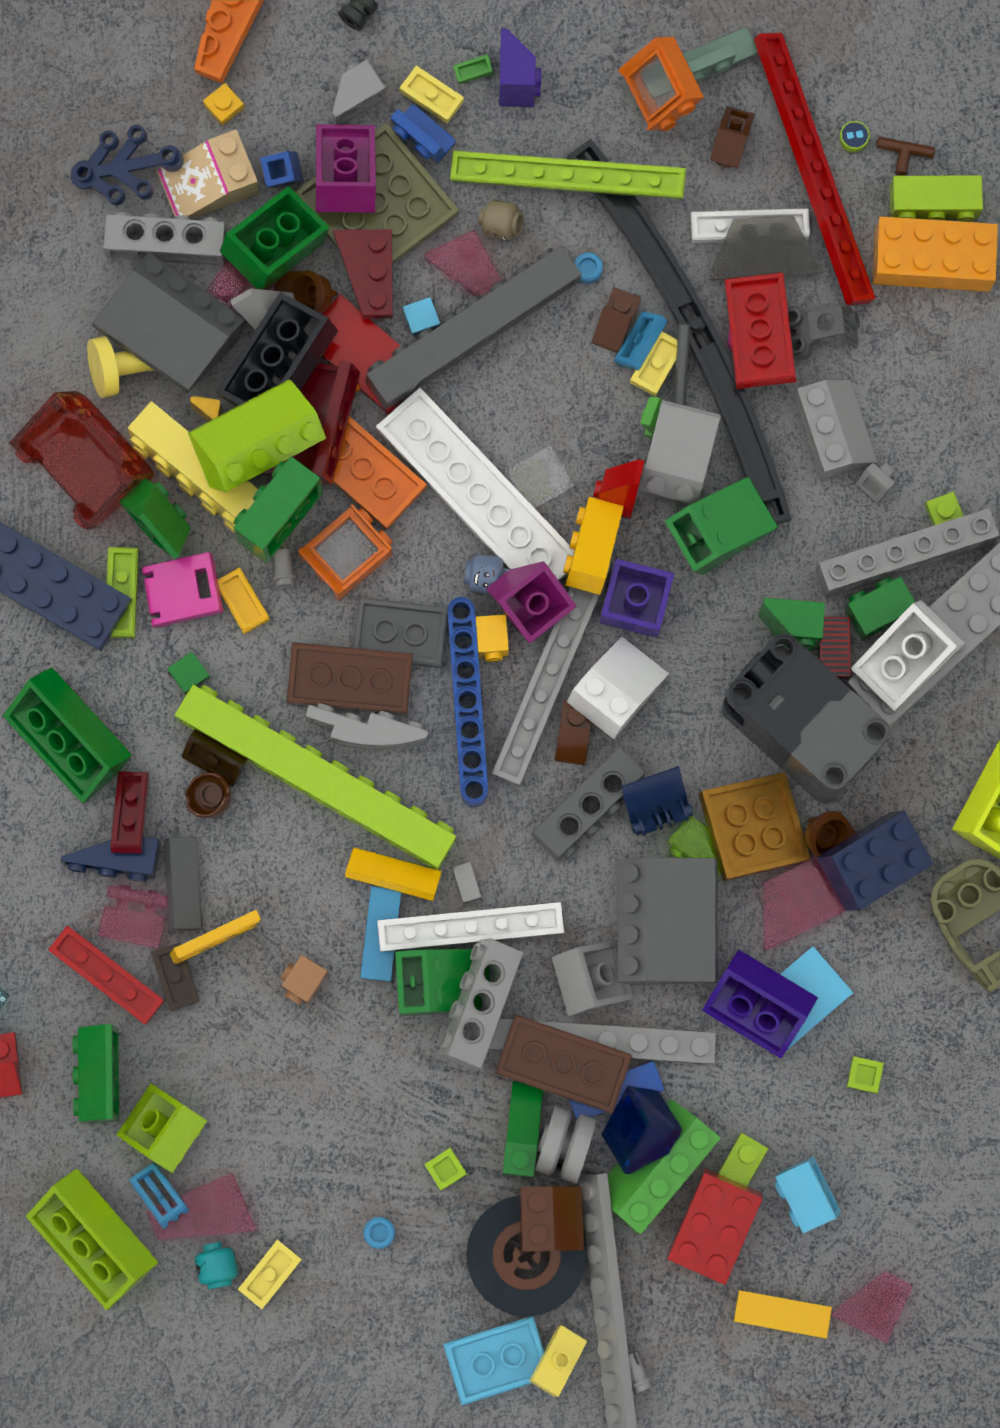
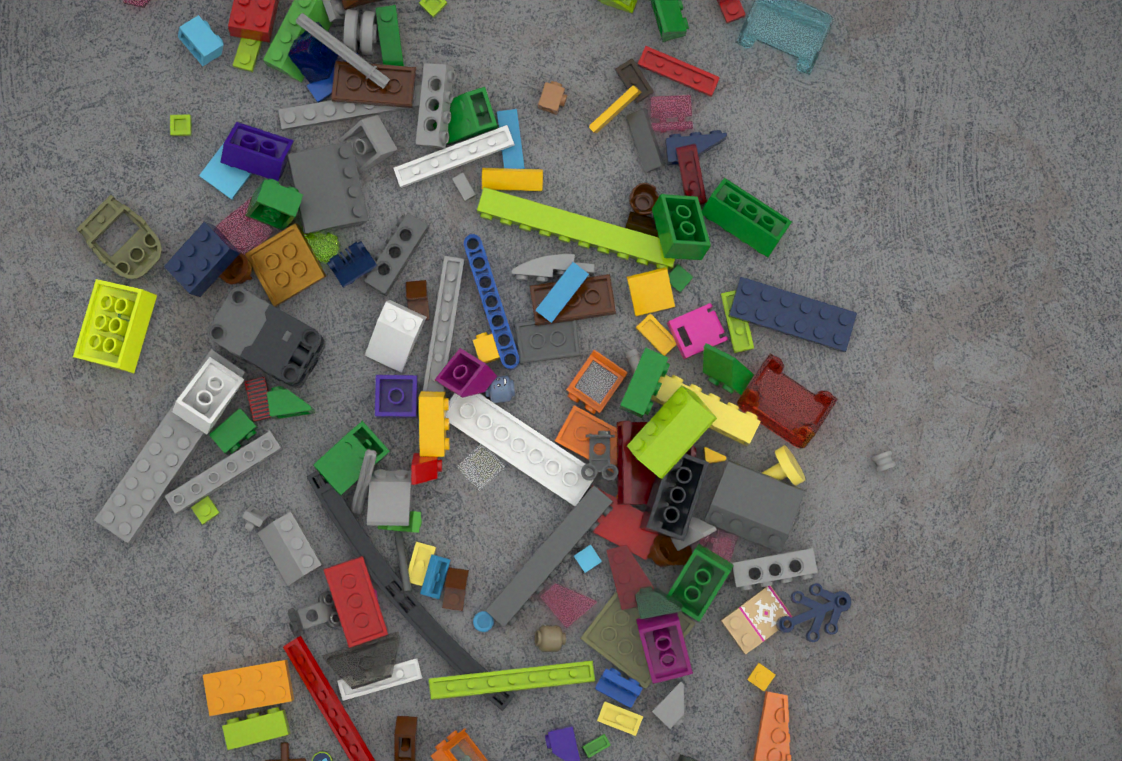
camera: 170 degrees right, 5 degrees up
(165, 733) = (681, 227): none -> green brick
(234, 660) = (650, 291): none -> yellow tile
(281, 169) = (707, 635): blue brick -> none
(340, 220) = (655, 603): none -> clear green slope
(362, 685) = (562, 292): none -> dark azure tile
(369, 436) = (599, 463): none -> dark grey piece
(598, 1116) = (342, 50): none -> light grey axle
(711, 484) = (363, 481): none -> light grey axle
(750, 910) = (274, 204): none -> green brick

